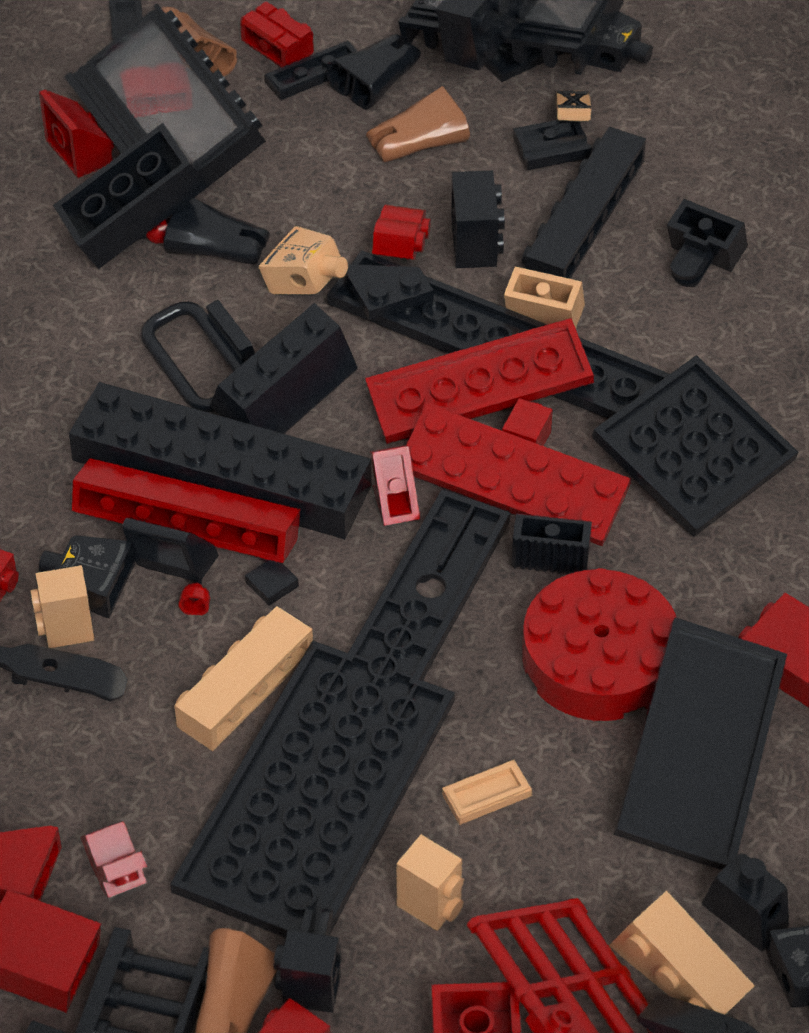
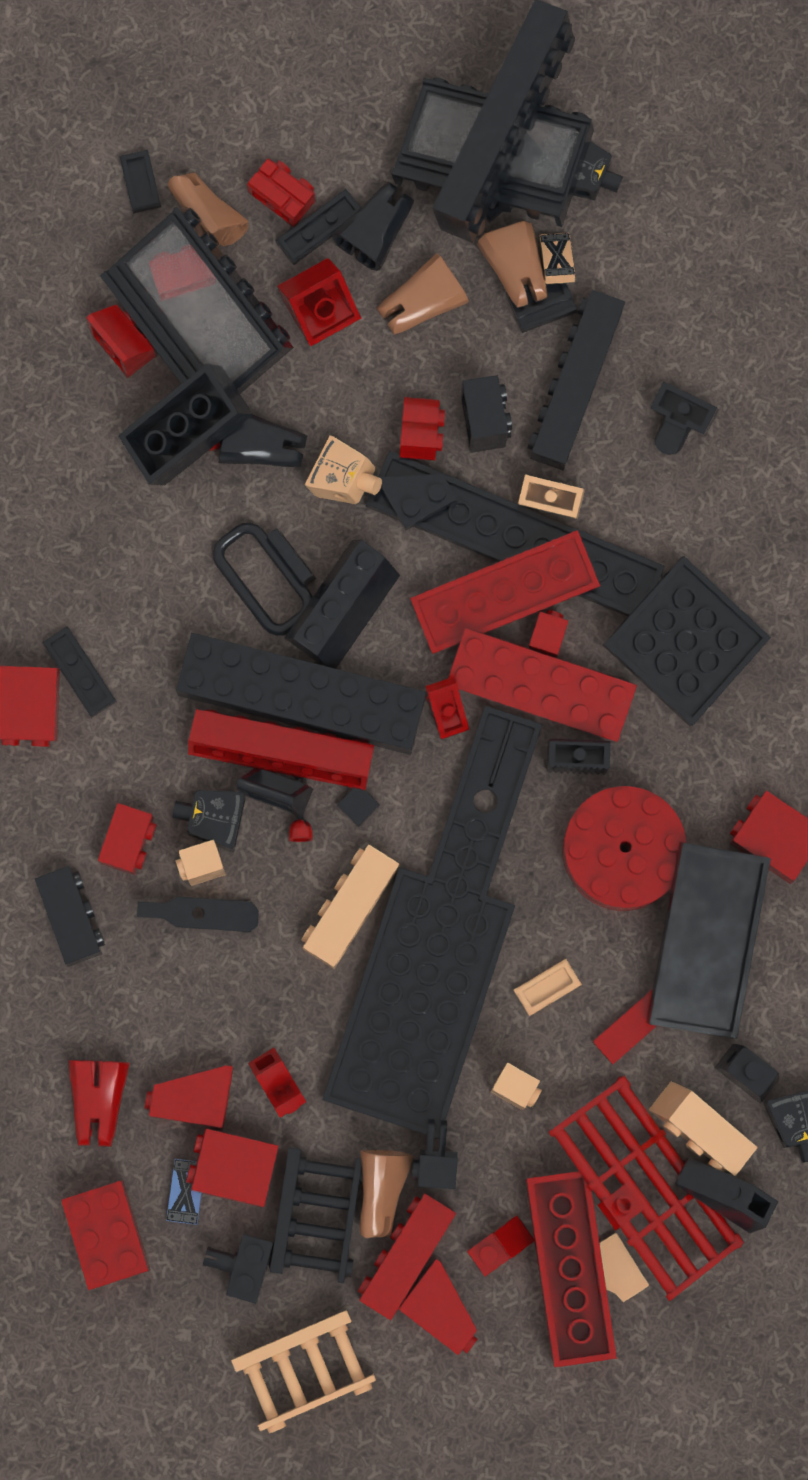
camera: 10 degrees left, 30 degrees up
(304, 124) = (319, 301): none -> red slope
(525, 99) = (515, 260): none -> nougat piece
(585, 850) = (625, 1031): none -> red tile

